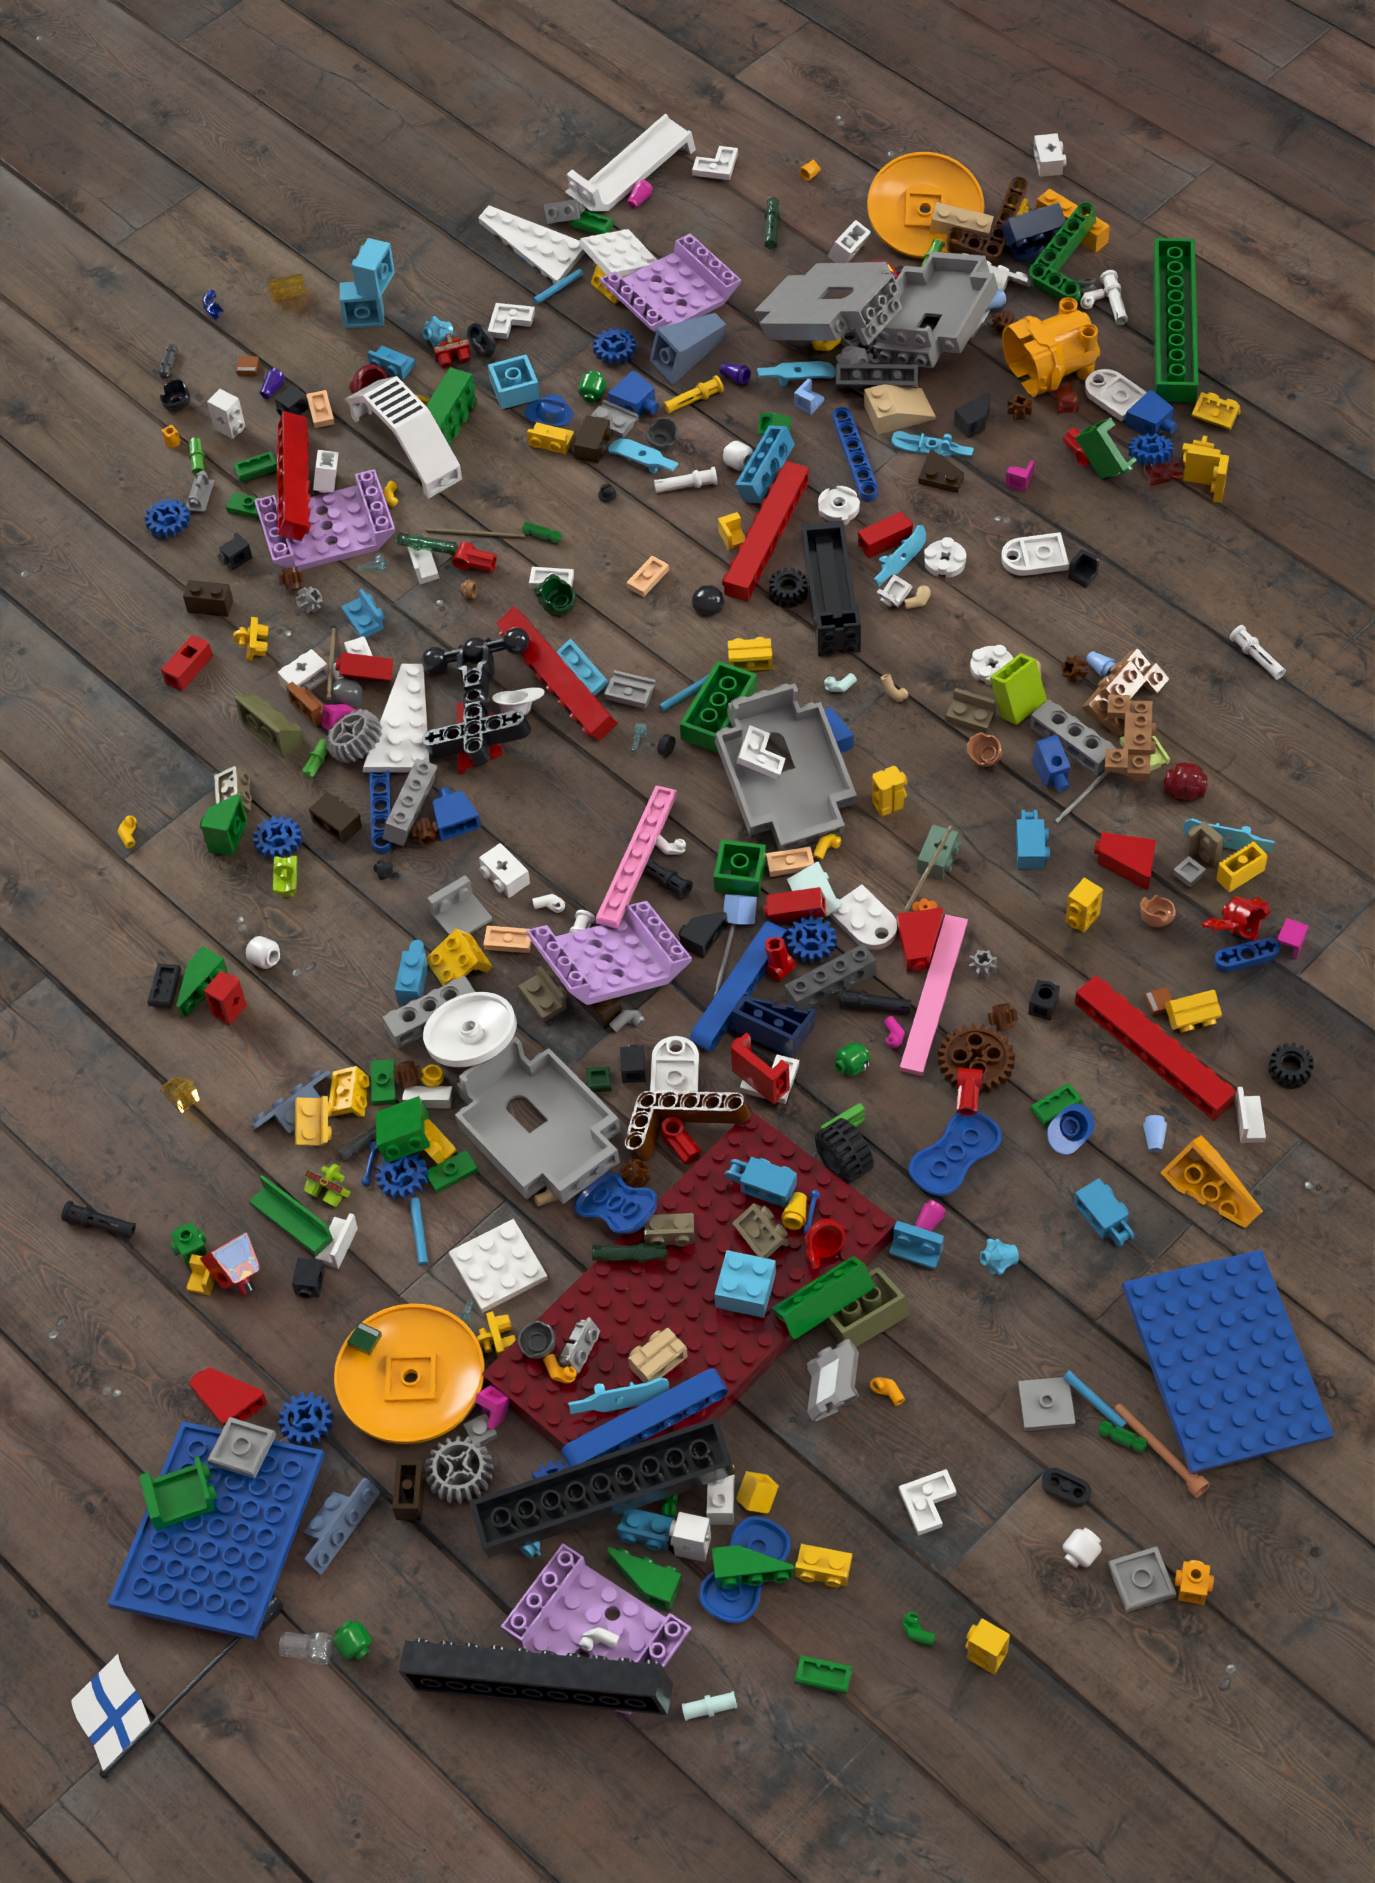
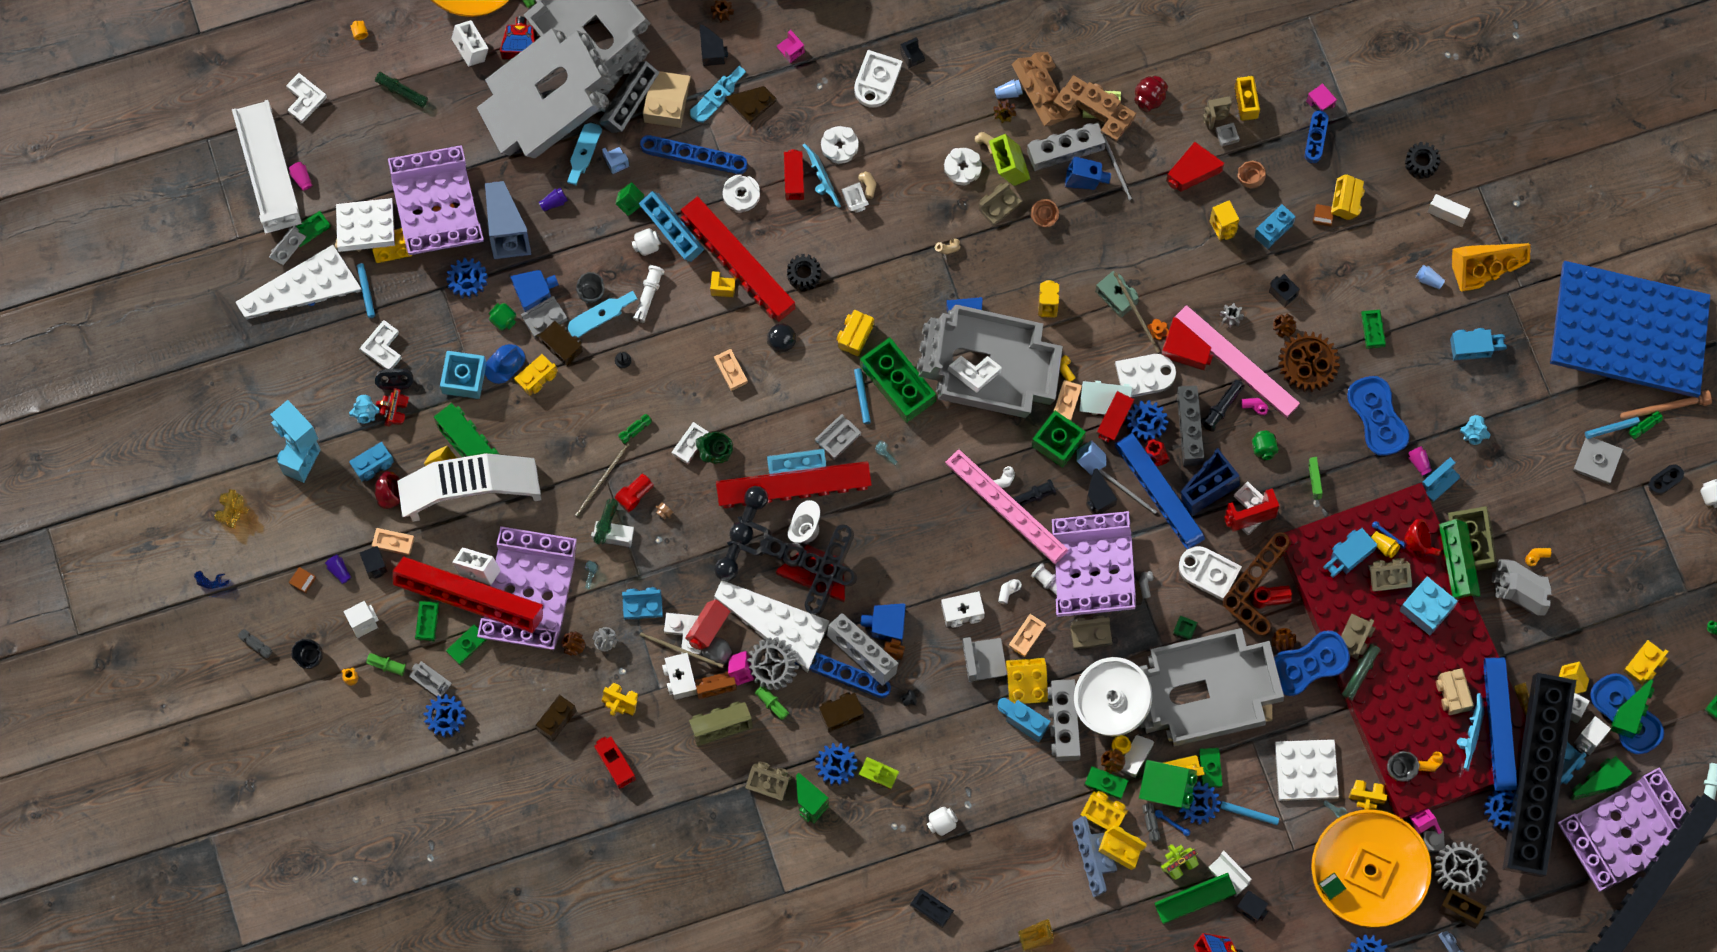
camera: 65 degrees left, 15 degrees up
(126, 830) = (760, 879): yellow arm -> none
(198, 975) = (938, 877): green slope -> none
(225, 997) = (976, 864): red brick -> none
(235, 552) = (516, 676): black brick -> none
(388, 494) = (515, 524): yellow arm -> none
(584, 1336) = (1423, 745): light grey hinge -> none
(596, 1636) = (1633, 831): white arm -> none
(632, 1064) = (1187, 597): black brick -> none
(666, 745) = (908, 435): black tile -> none
(702, 391) = (558, 235): yellow pin -> none
(831, 588) = (825, 241): black brick -> none
(839, 686) = (921, 282): light aqua arm -> none
(844, 1150) = (1346, 488): black tyre -> none
(921, 1496) = (1628, 576): white plate -> none
(968, 1091) = (1335, 377): red piece -> none
(1031, 841) = (1142, 225): dark azure brick -> none
(1070, 1129) = (1401, 330): blue piece -> none
(1111, 958) = (1274, 226): none -> dark azure brick
(1155, 1048) = (1362, 239): red brick -> none
(1239, 837) = (1213, 92): medium azure piece -> none
(1240, 916) = (1289, 122): red helmet -> none

